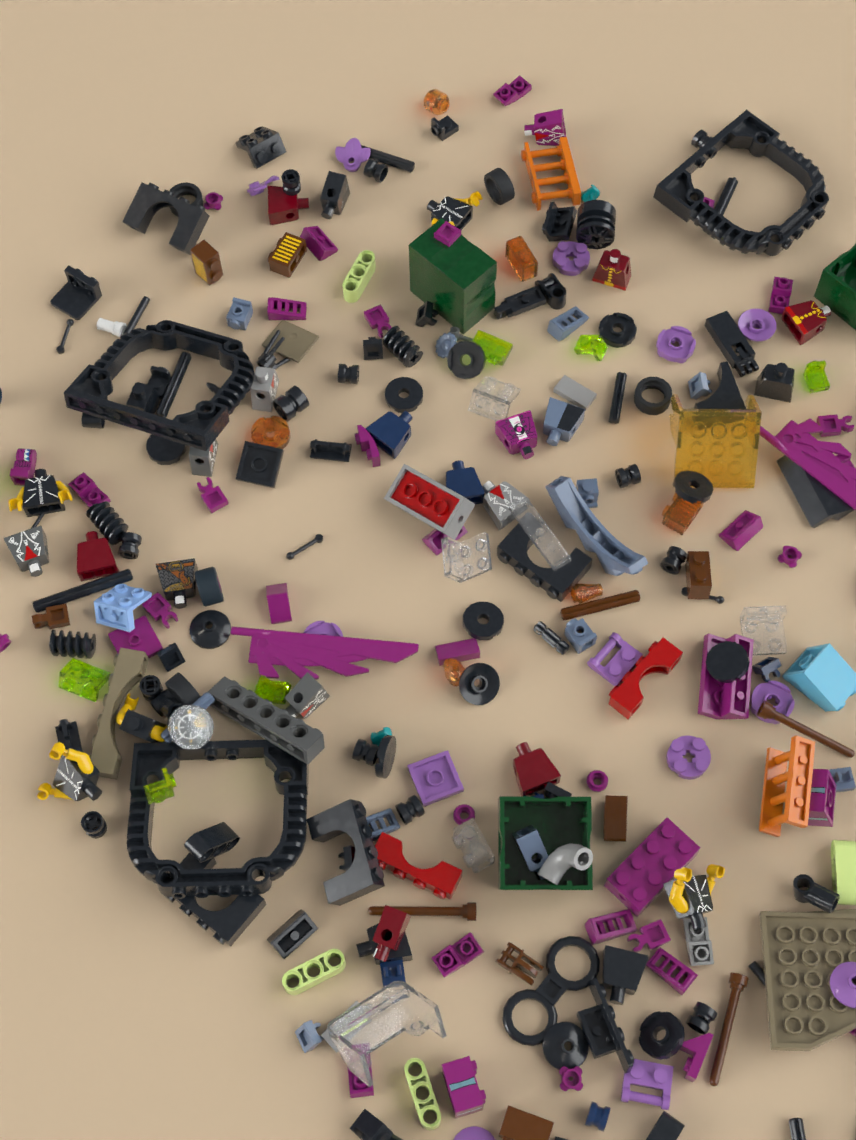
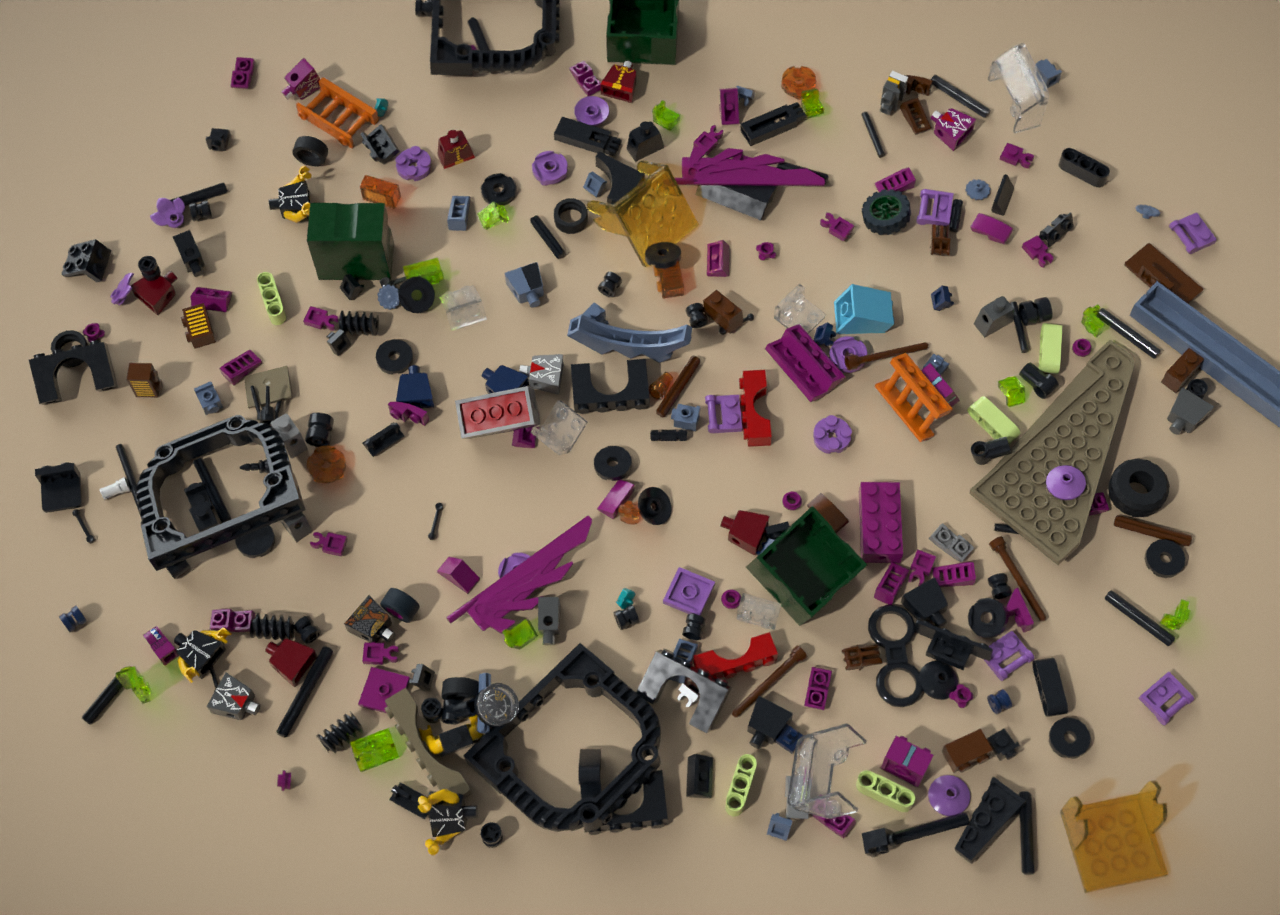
camera: 45 degrees left, 0 degrees up
(55, 617) = (305, 727): reddish brown plate -> none
(117, 606) = (348, 676): light blue bracket -> none
(160, 790) = (522, 764): clear neon green bracket -> none
(211, 637) = (431, 643): black dish -> none
(259, 464) = (342, 491): black tile -> none
(267, 720) = (541, 655): dark grey brick -> none
(350, 374) = (340, 373): black wheel -> none
(386, 755) = (644, 606): black tile -> none
(391, 921) = (767, 700): dark red torso -> none
(436, 102) = (193, 124): clear orange head -> none
(447, 234) = (328, 210): magenta tile -> none
(518, 434) = (506, 317): magenta torso -> none
(520, 303) = (411, 224): black hinge -> none
(528, 843) = (802, 577): sand blue torso -> none
(540, 533) = (594, 371): clear tile -> none
(553, 291) = (423, 198): black piece -> none
(563, 858) = (831, 562): light grey cylinder -> none
(575, 392) = (514, 257): light grey tile -> none
(596, 224) = (410, 124): black wheel -> none
(692, 894) = (923, 517): torso -> none
(727, 661) = (799, 351): black tile -> none

